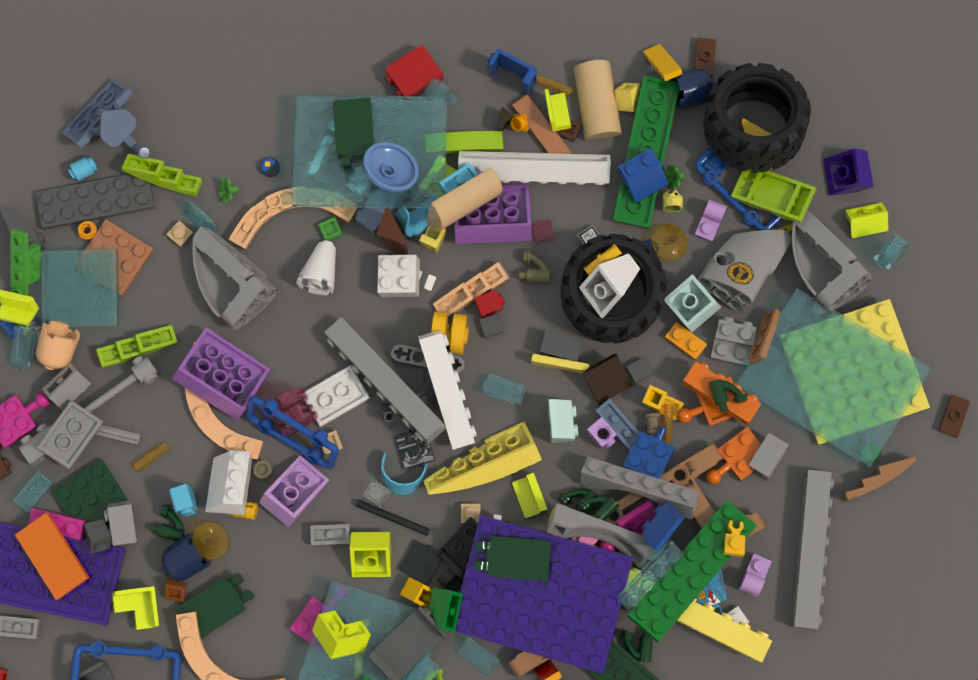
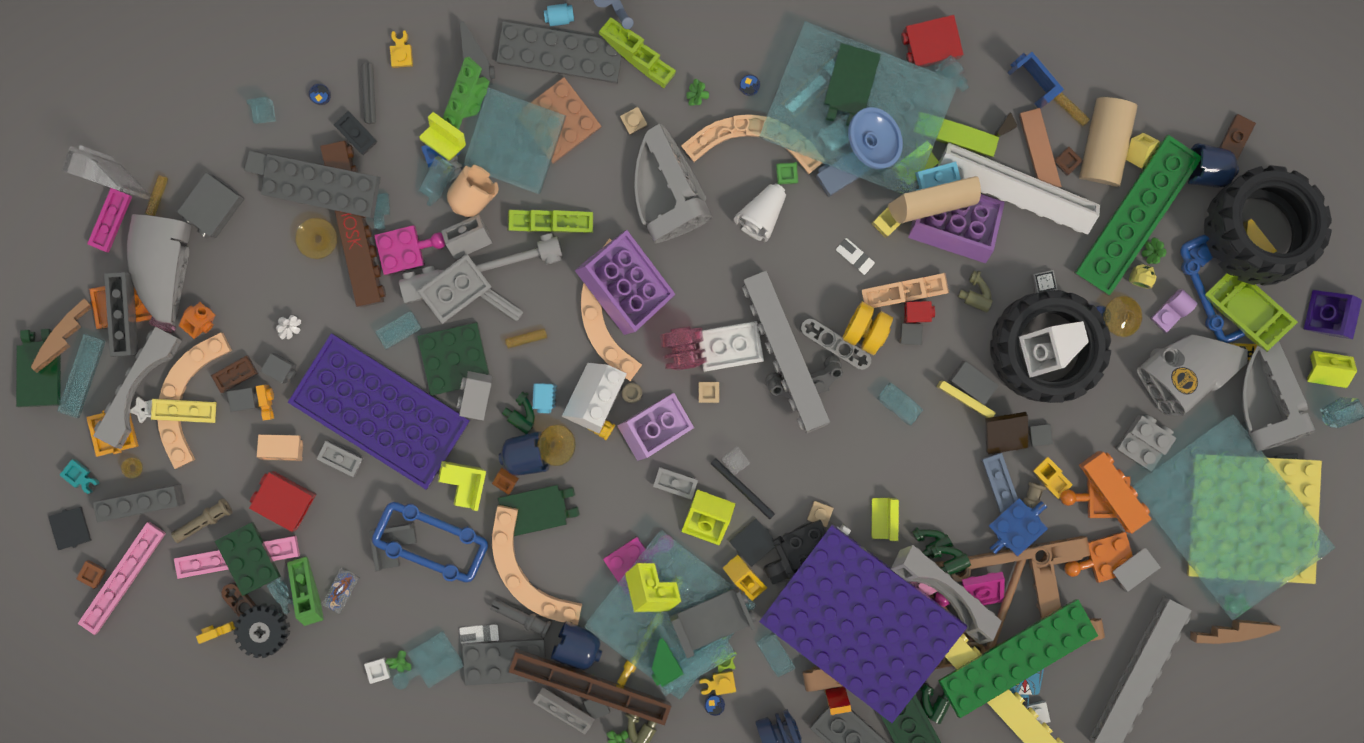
camera: 25 degrees right, 10 degrees up
(52, 556) = (396, 403): orange tile -> none
(68, 525) = (411, 371): dark pink plate -> none
(83, 226) = (538, 75): light orange plate -> none
(97, 536) = (447, 400): dark grey brick -> none
(198, 217) = (658, 111): clear light blue slope -> none
(265, 426) = (687, 398): blue bar -> none
(389, 234) = (849, 207): reddish brown slope -> none
(398, 275) = (838, 249): white brick -> none
(399, 488) = (756, 461): medium azure piece -> none
(412, 222) = (876, 197): medium azure piece -> none
(413, 451) = (786, 429): piece -> none
(445, 608) = (762, 601): green slope -> none
(446, 389) = (844, 385): white brick -> none
(495, 459) = (863, 470): light yellow wedge -> none
(515, 558) = (851, 582): dark green tile -> none
(519, 123) = (1020, 135): light orange plate -> none
(543, 231) = (1001, 257): clear pink tile -> none
(558, 111) = (1065, 138): neon yellow panel -> none
(561, 420) = (945, 458): light aqua slope -> none
(599, 425) = (973, 478): lavender brick -> none
(604, 476) = (1025, 576): light grey arch -> none
(608, 255) = (1054, 319): yellow pin -> none
(642, 175) = (1125, 240): blue slope -> none
(650, 575) = (976, 649): clear light blue plate -> none
(662, 62) = (1193, 128): yellow tile -> none
(662, 526) = (1008, 607): blue slope -> none
(668, 422) = (1050, 498): clear yellow piece -> none
(685, 341) = (1099, 423): light orange plate -> none
(692, 303) = (1123, 389): light aqua slope -> none
(719, 394) = (1114, 497): dark green plant -> none
(734, 542) = (1069, 646): yellow plate -> none
(755, 575) = (1070, 682): lavender plate -> none
(764, 336) = (1181, 451): medium nougat tile -> none
(954, 416) = (1333, 598): reddish brown plate -> none

